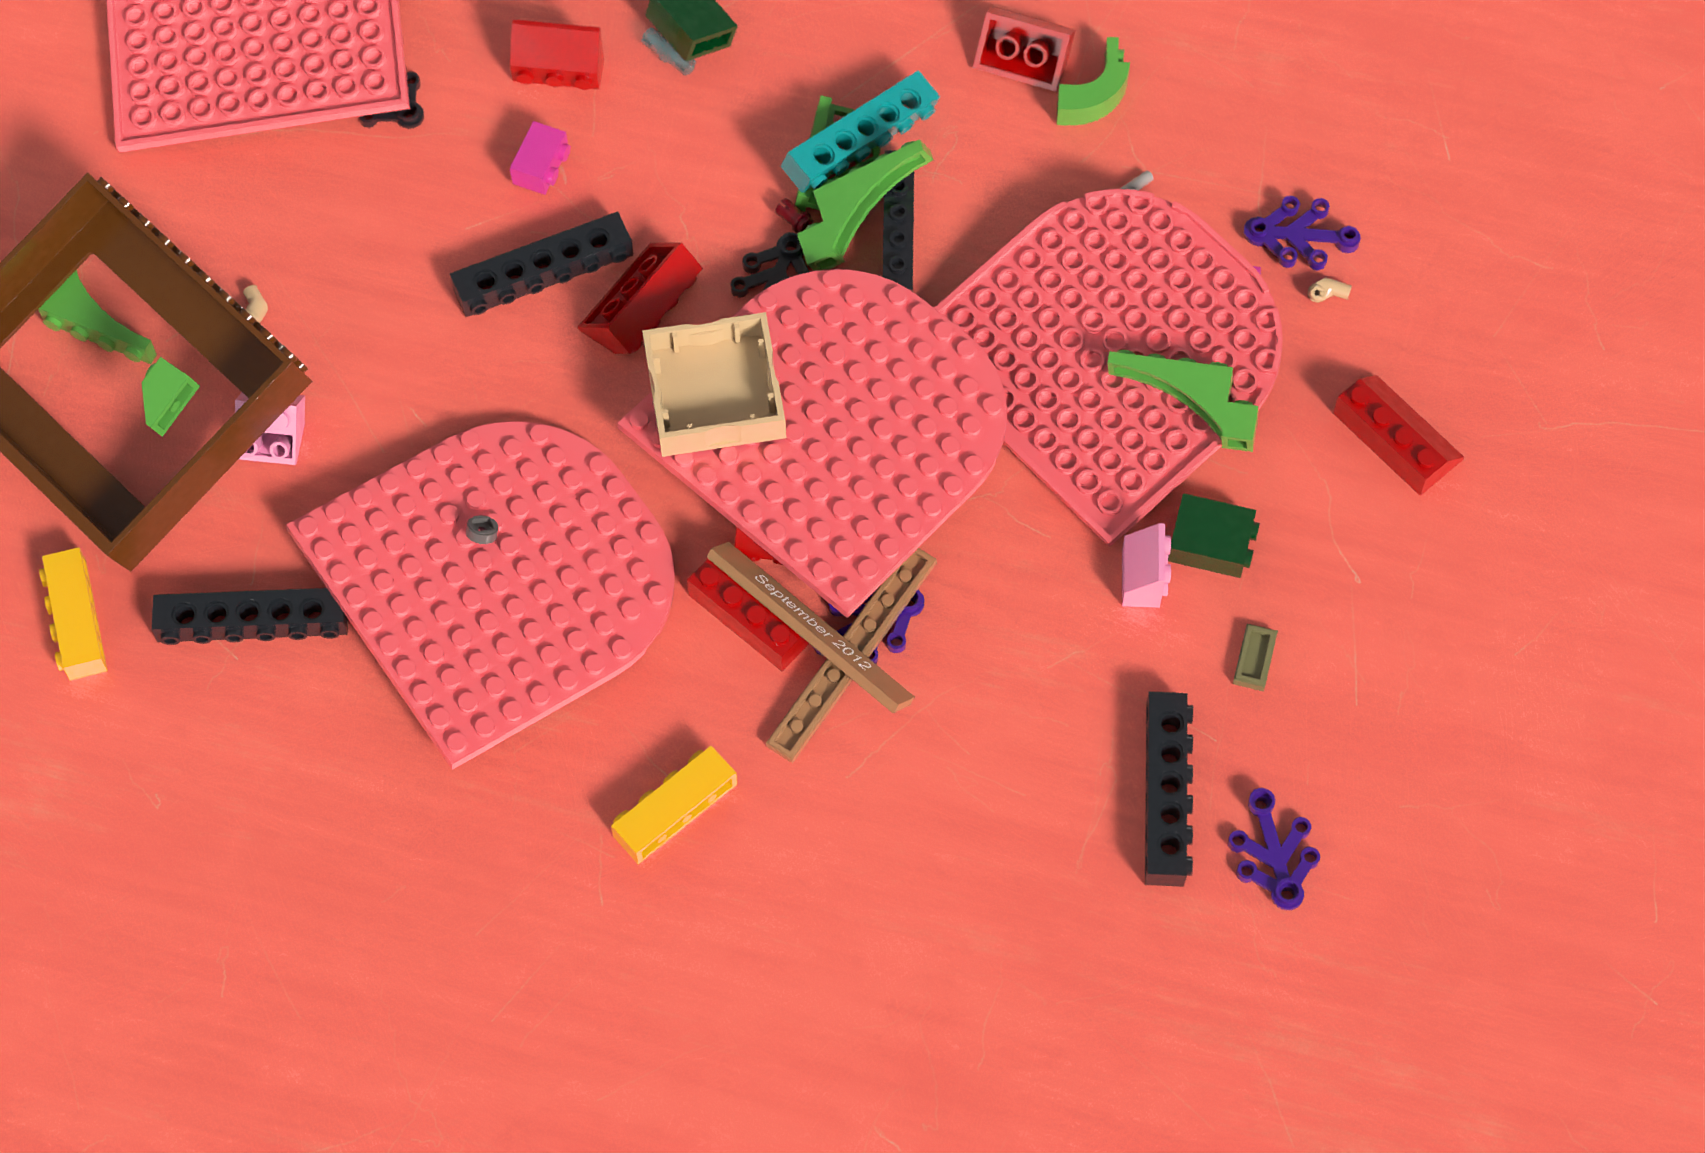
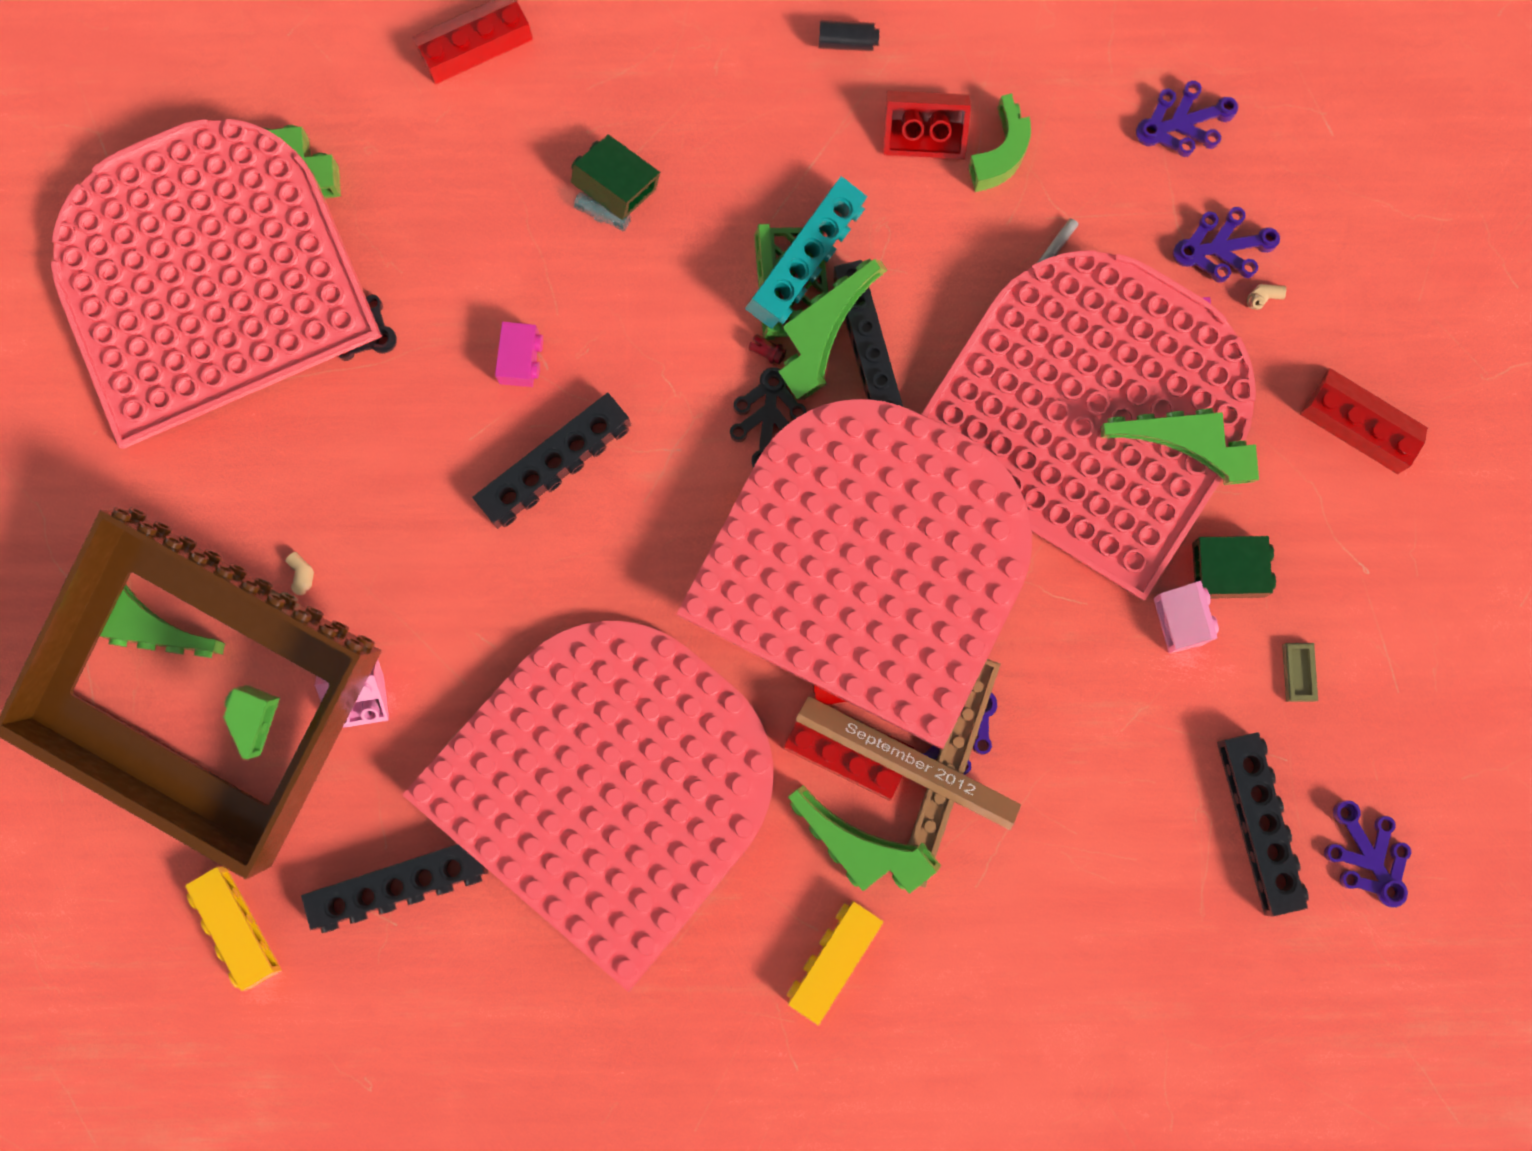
camera: 15 degrees left, 15 degrees up
(482, 529) = (583, 751): dark grey tile -> none
(556, 54) = (501, 246): slope -> none
(641, 297) = (653, 469): red slope -> none
(714, 384) = (757, 558): tan tile -> none
(735, 709) = (862, 854): none -> bright green arch
(1294, 109) = (1184, 122): none -> dark purple plant

